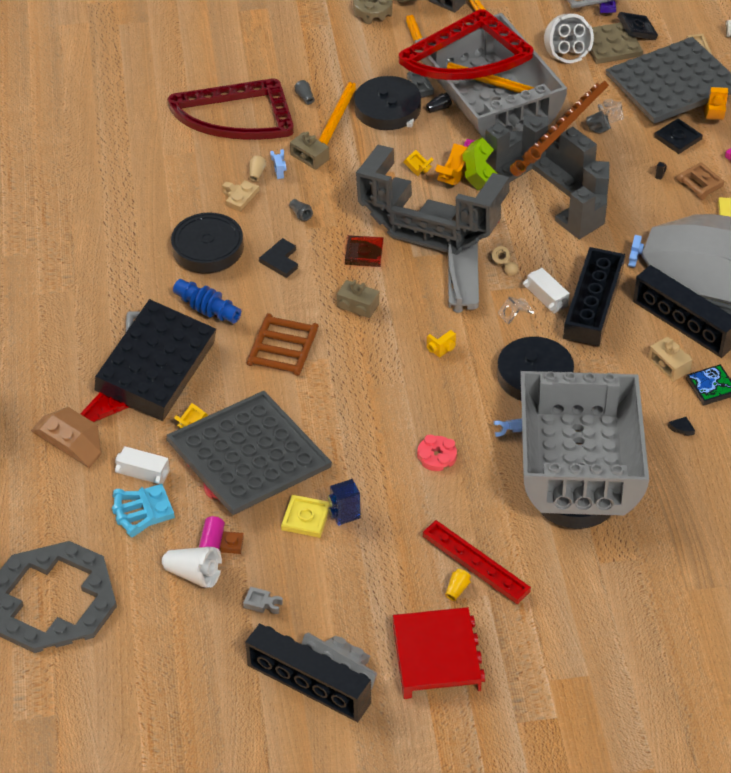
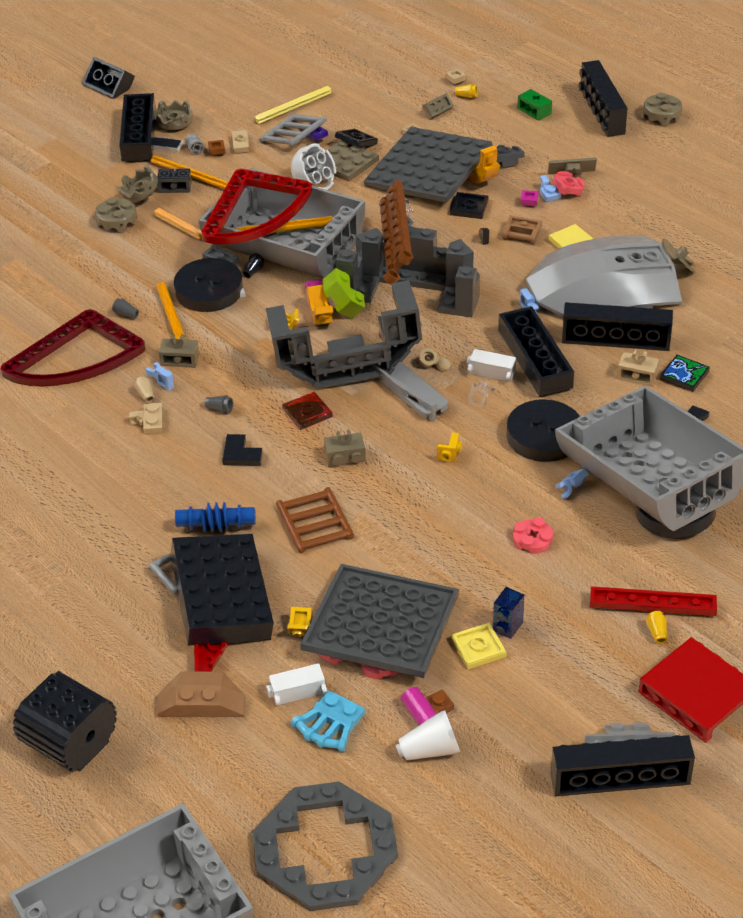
camera: 35 degrees left, 5 degrees down
(207, 242) = (164, 470): black brick -> none
(260, 599) = (515, 736): light grey plate -> none

